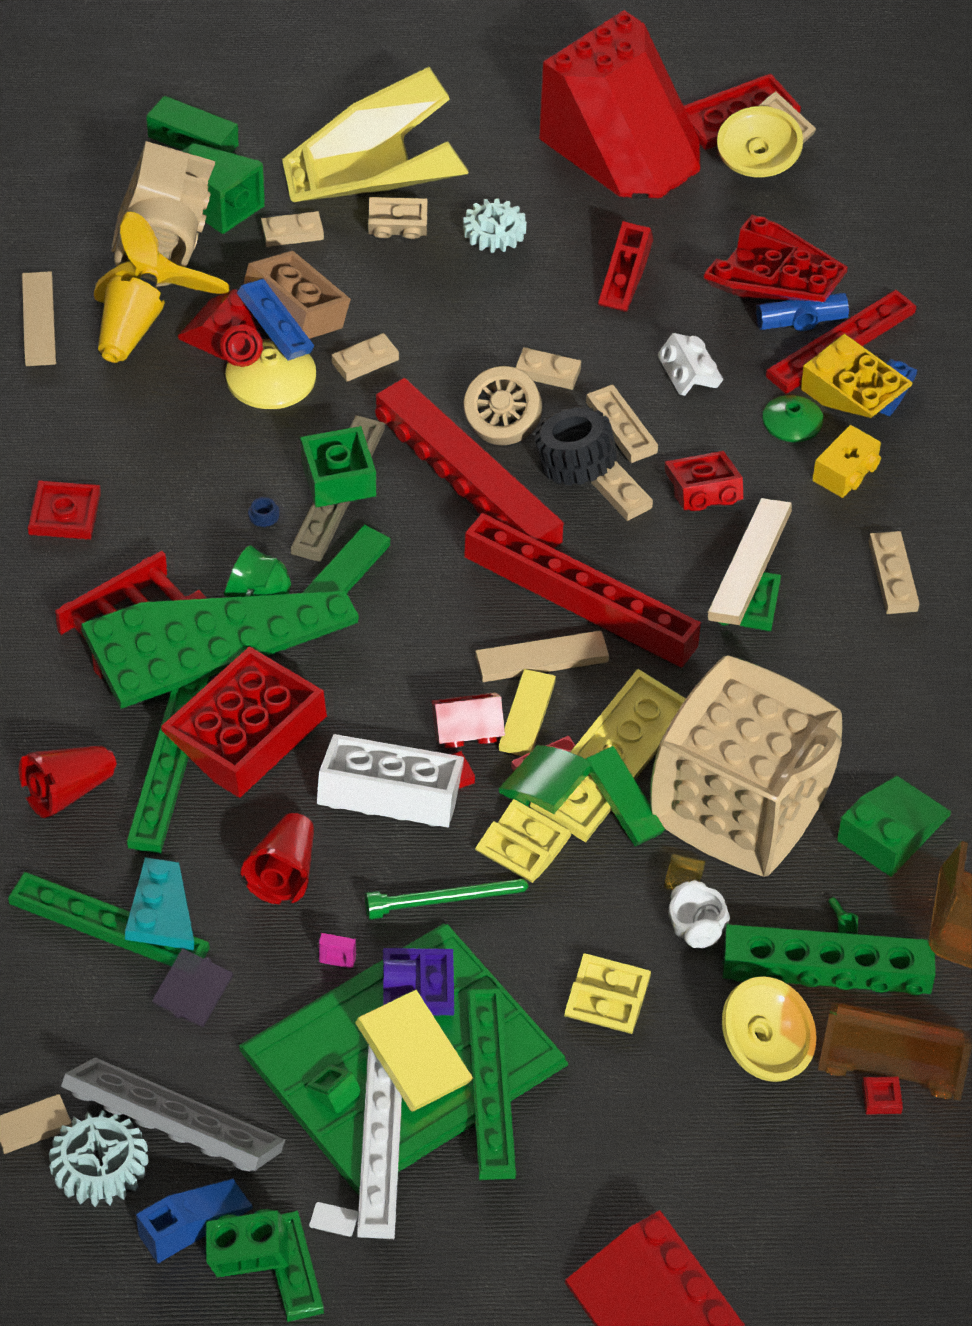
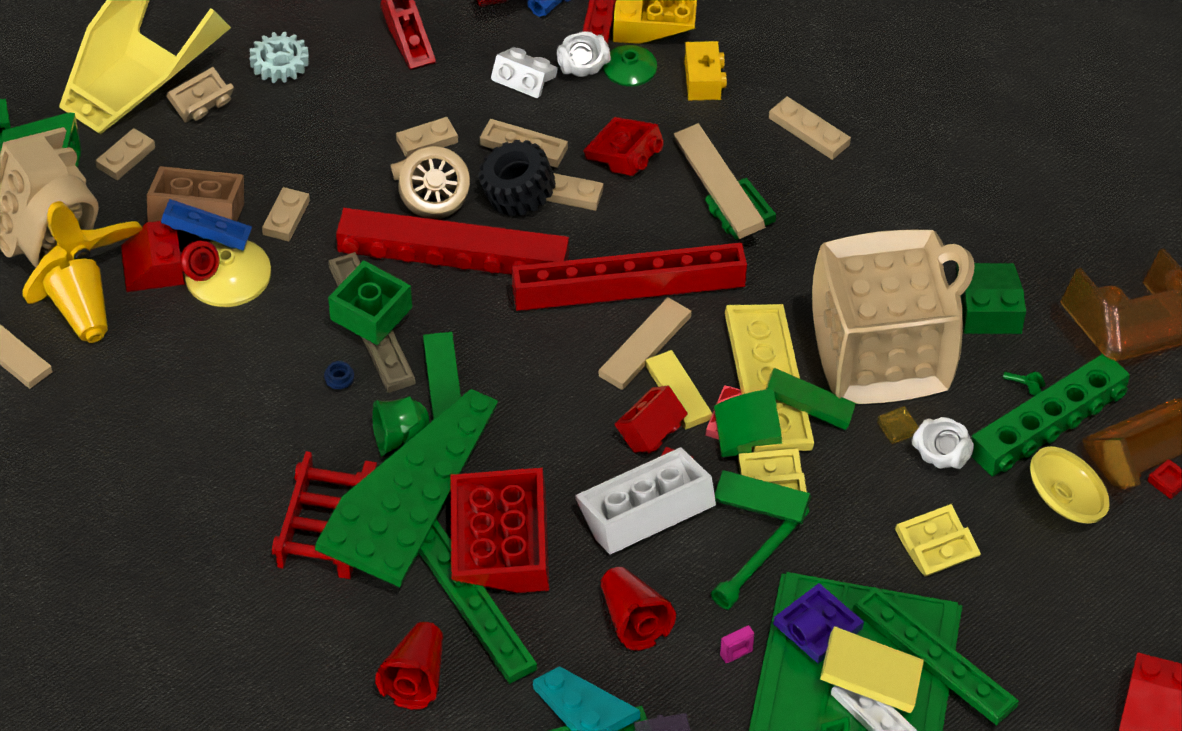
camera: 40 degrees left, 0 degrees up
(64, 510) = (184, 475): red tile -> none
(490, 847) = (762, 497): none -> green tile
(750, 379) = (583, 54): none -> white hair

